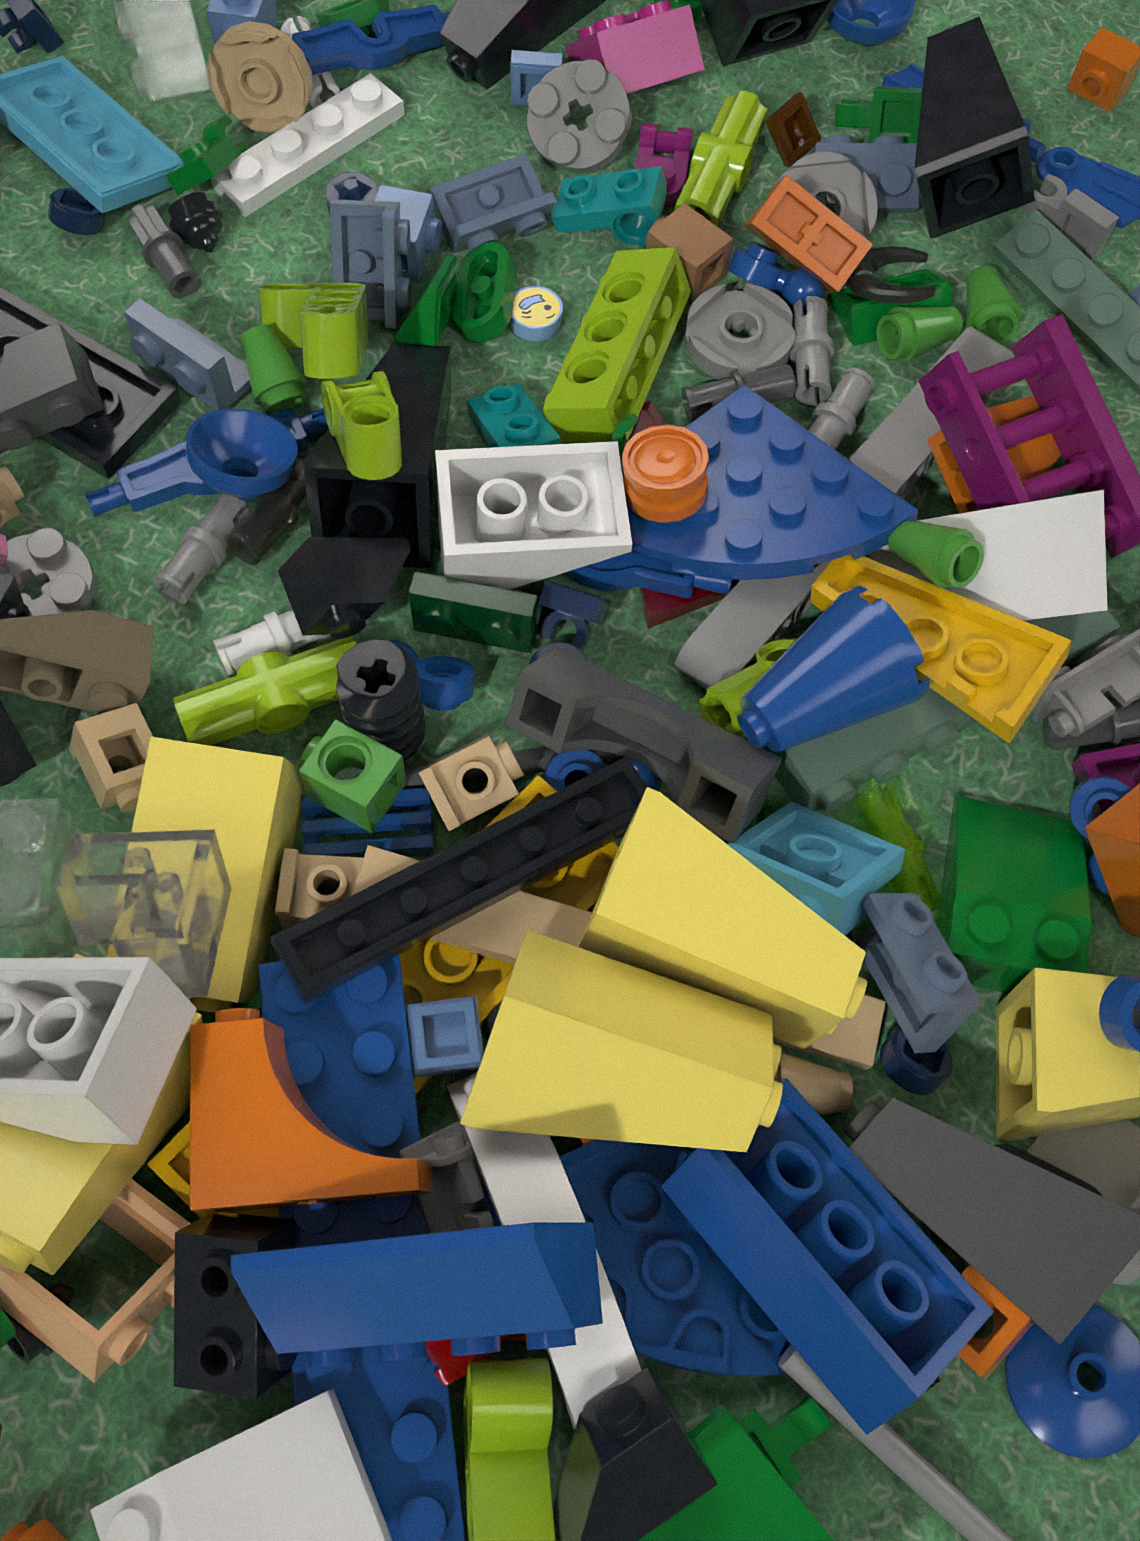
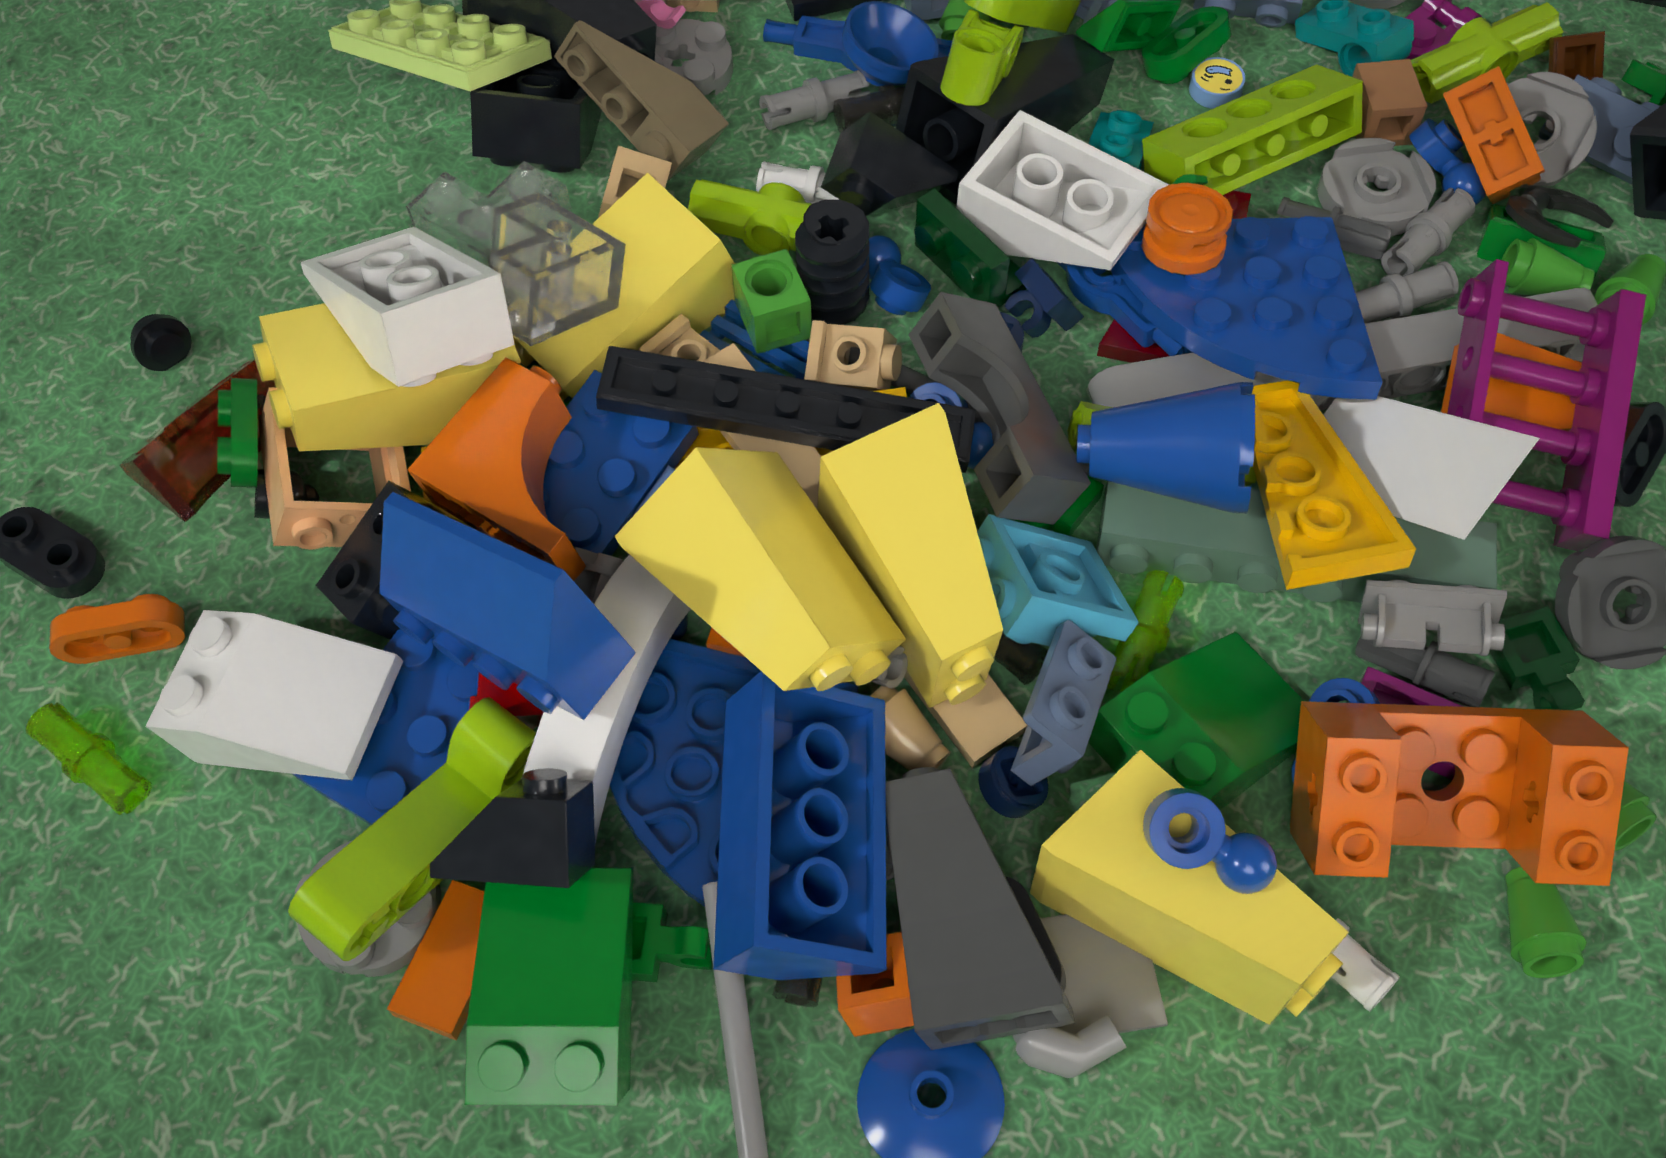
camera: 45 degrees right, 5 degrees down
(938, 552) = (1370, 424): bright green cone -> none

